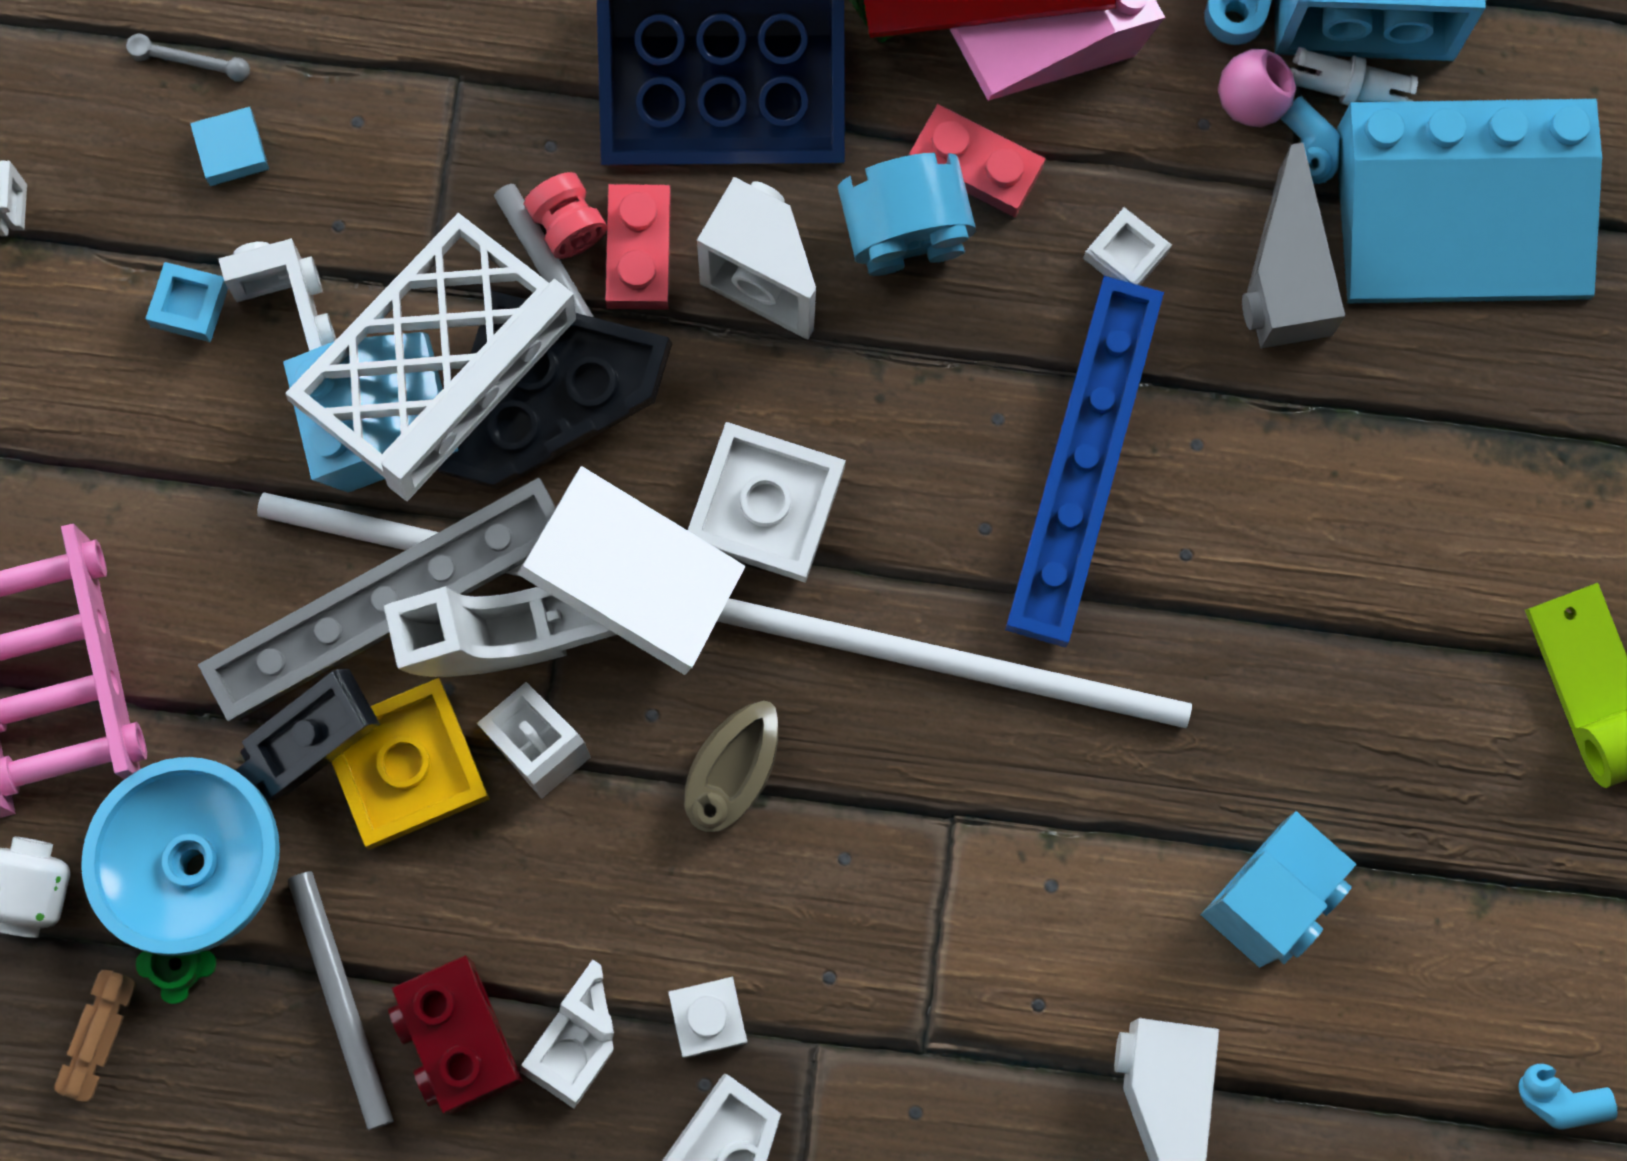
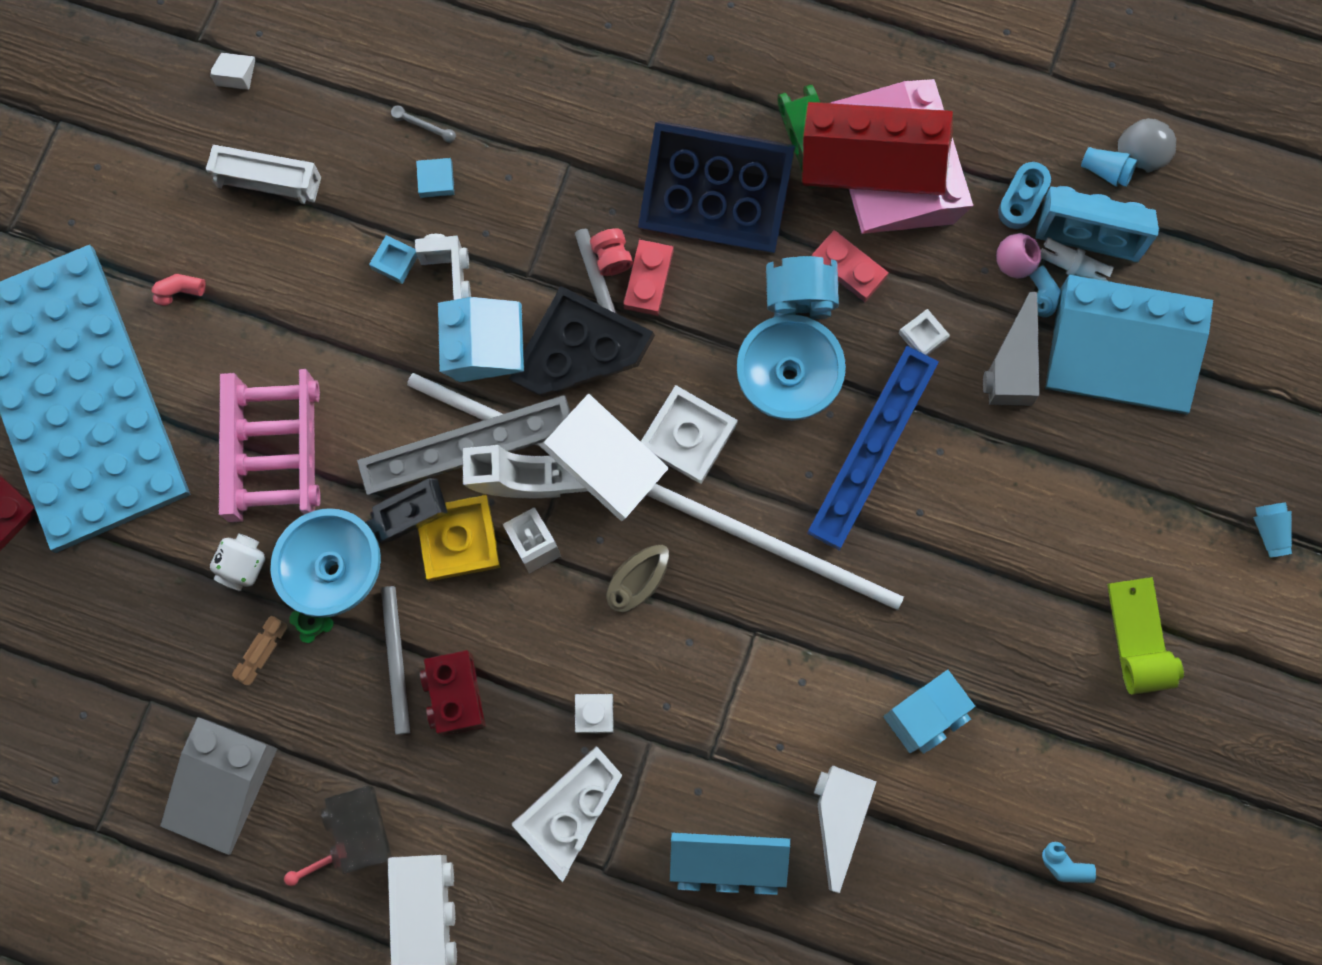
camera: 20 degrees right, 0 degrees up
(468, 396) = (533, 342): white fence -> none
(575, 1042) = (517, 712): white slope -> none
(757, 256) = (711, 296): white slope -> none
(923, 314) = (797, 346): none -> medium azure dish

